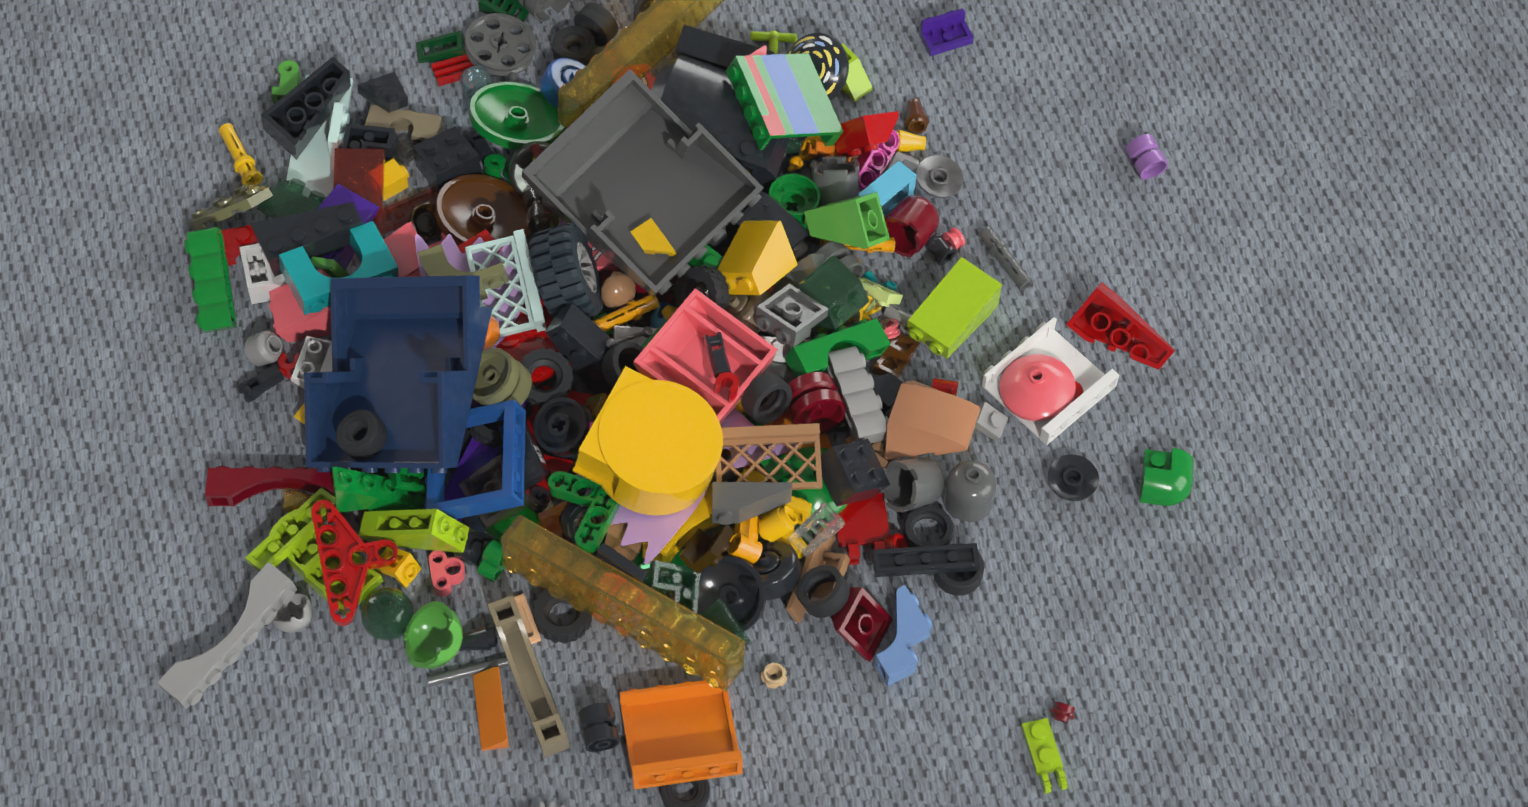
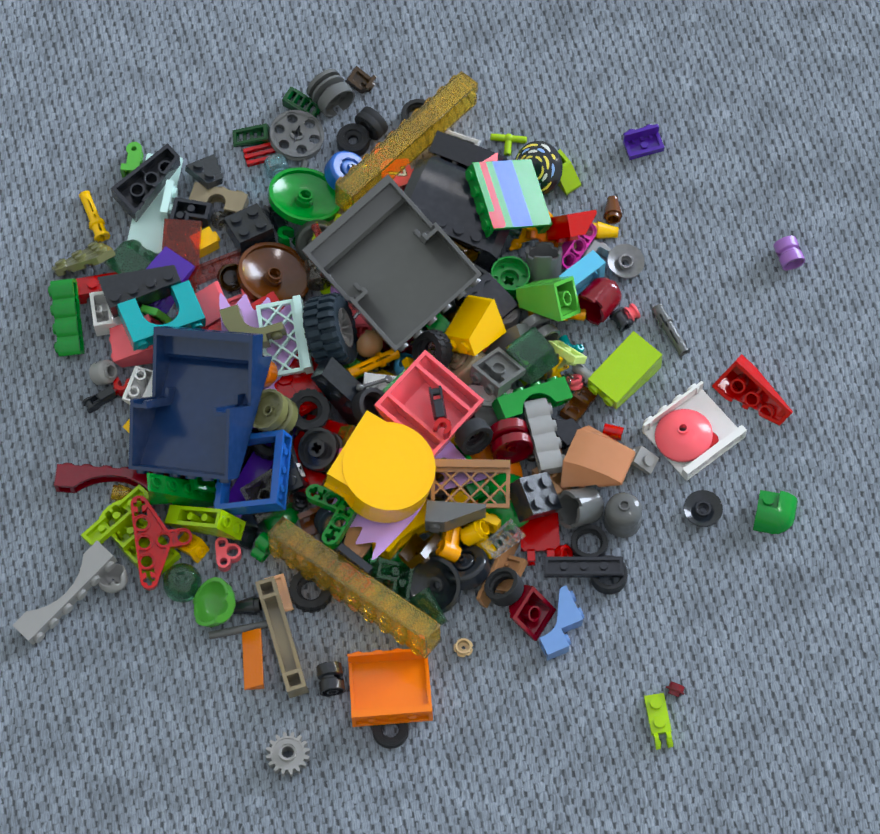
camera: 10 degrees right, 5 degrees up
(352, 425) = (160, 445): black tyre -> none
(652, 239) = (396, 307): yellow tile -> none

